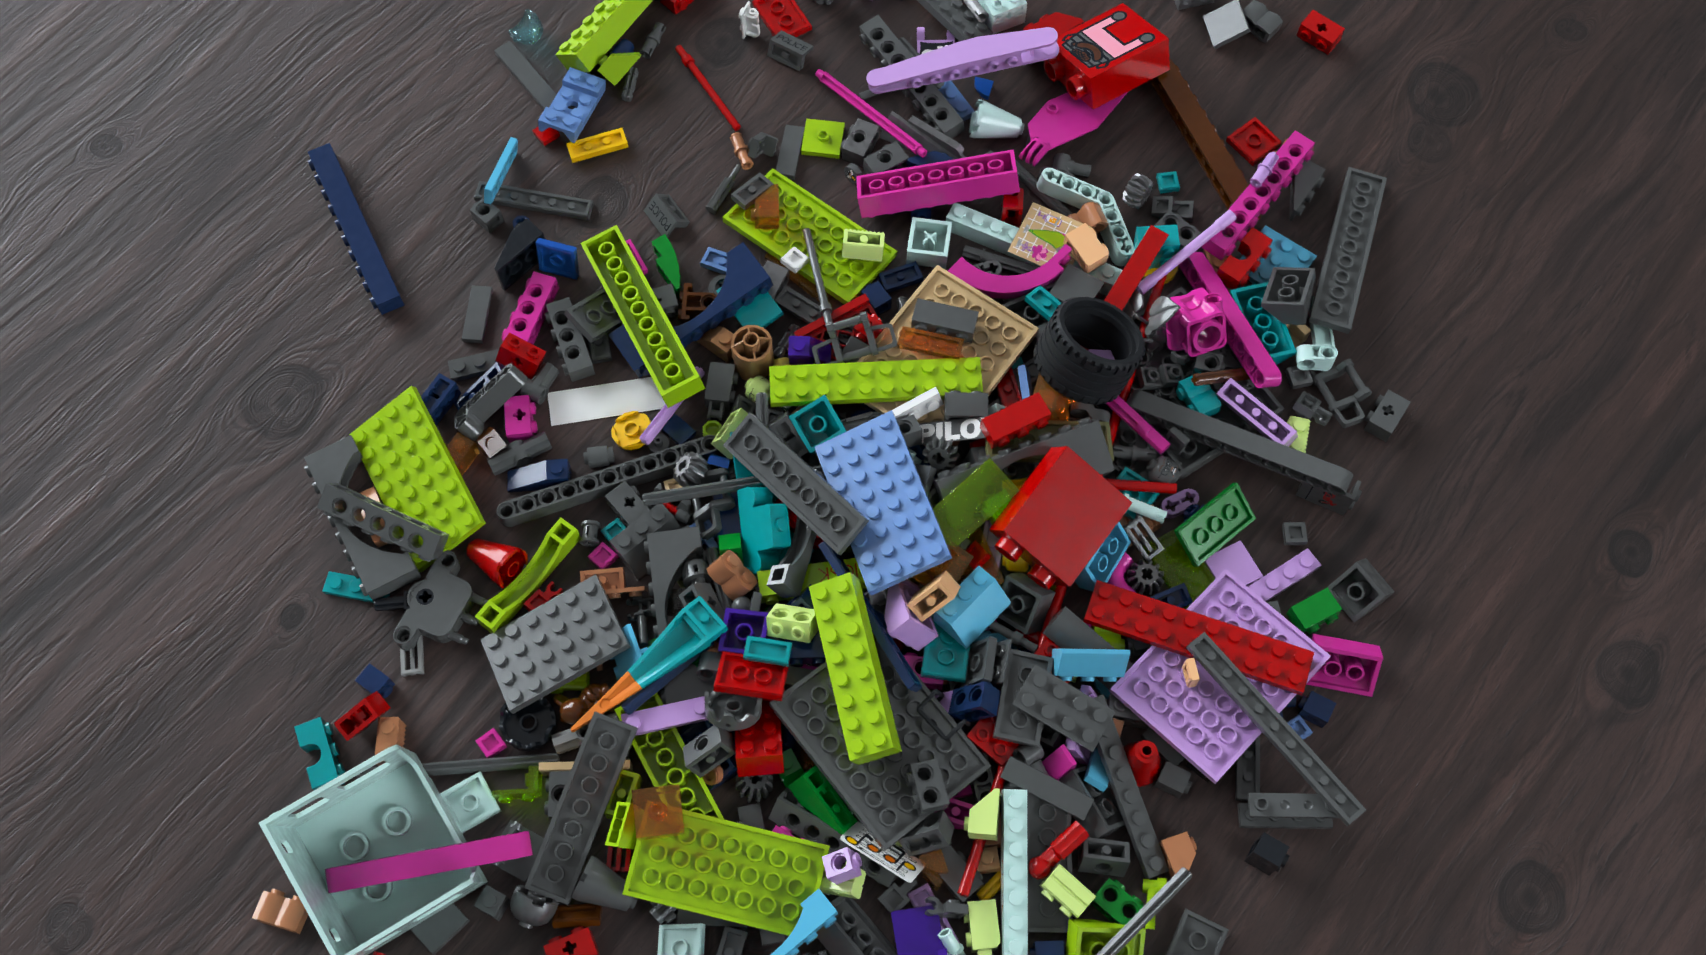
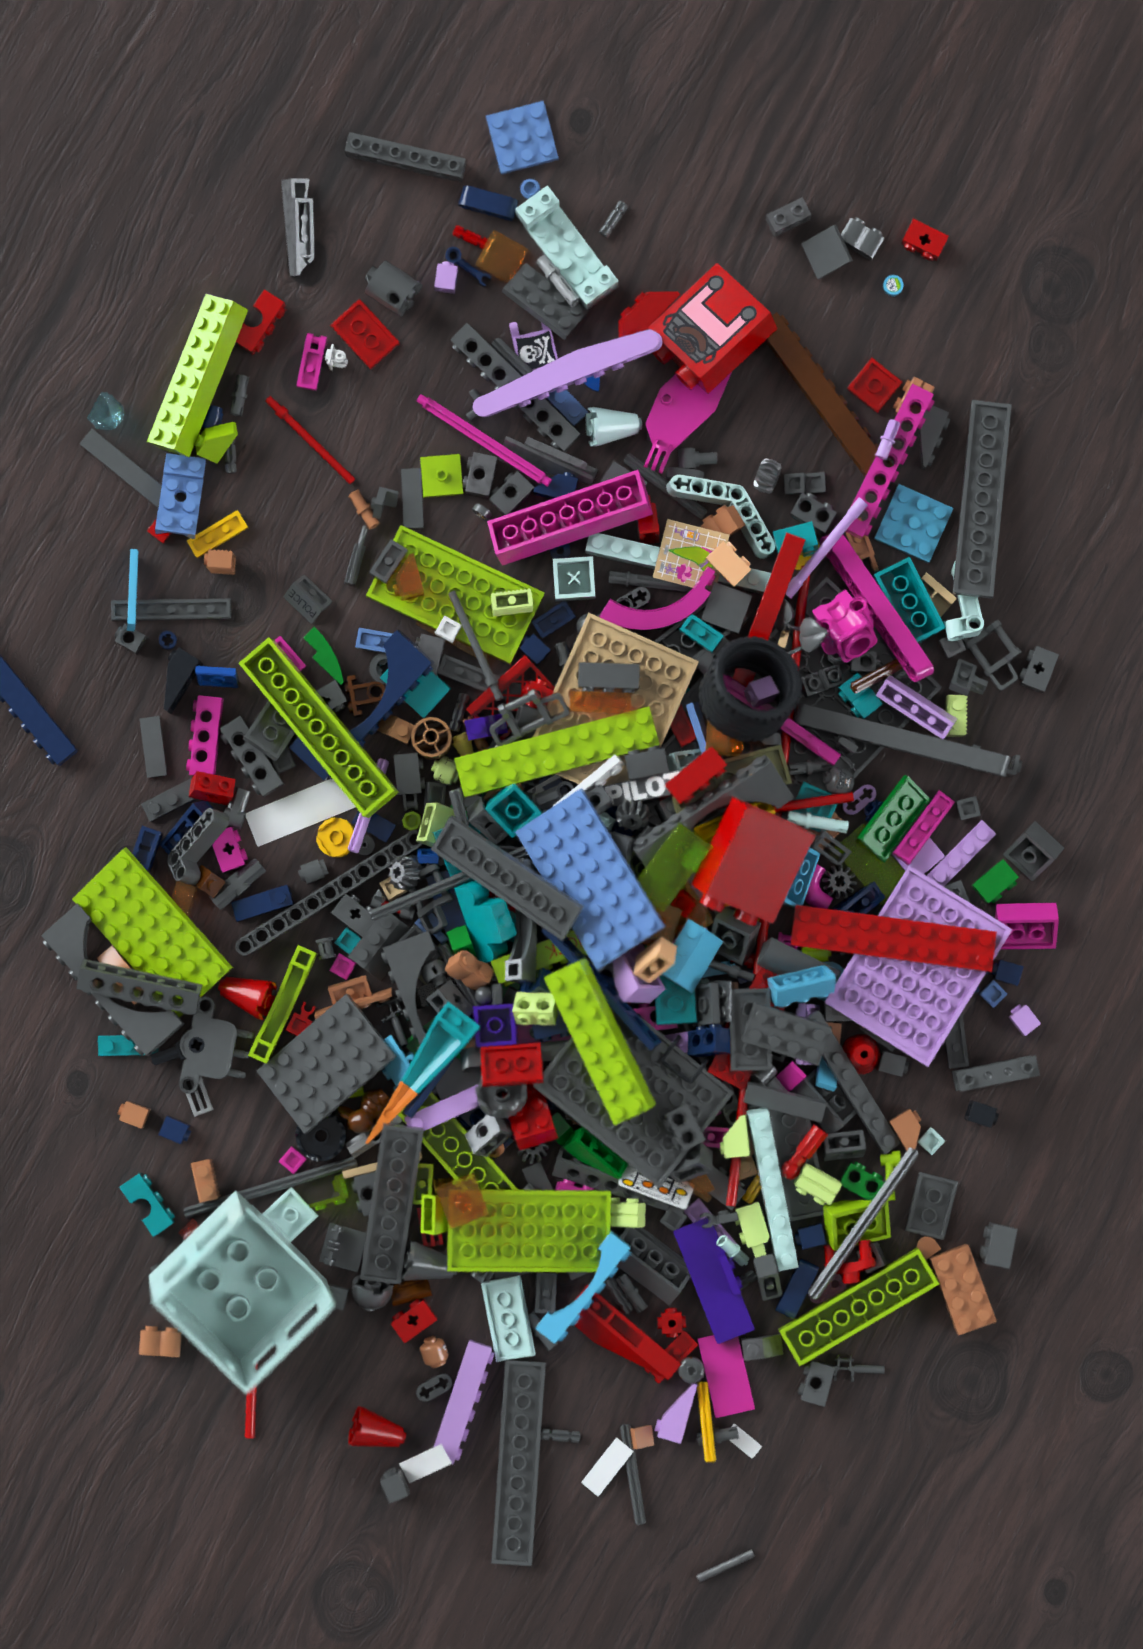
camera: 10 degrees left, 20 degrees up
(338, 657) = (133, 1114): none -> nougat brick
(362, 715) = (176, 1165): red brick -> none
(428, 862) = (280, 1283): dark pink beam -> none
(592, 162) = (220, 561): none -> nougat brick
(725, 27) = (311, 362): none -> dark pink plate
(767, 651) = (520, 1040): teal tile -> none
(789, 50) = (384, 378): dark grey panel -> none
(833, 865) = (618, 1209): lavender brick -> none
(1168, 182) = (796, 452): teal tile -> none
(1190, 672) = (891, 975): light nougat tile -> none
(1204, 877) = (931, 1141): none -> light aqua tile
(1236, 271) = (877, 550): red arch -> none
(1244, 541) = (923, 827): none -> dark pink tile
(1276, 729) = (969, 1012): dark grey plate -> none
(1284, 64) = (893, 285): none -> tile
(1290, 294) = (931, 568): dark grey slope -> none
(1332, 759) = (1024, 1019): none -> lavender brick

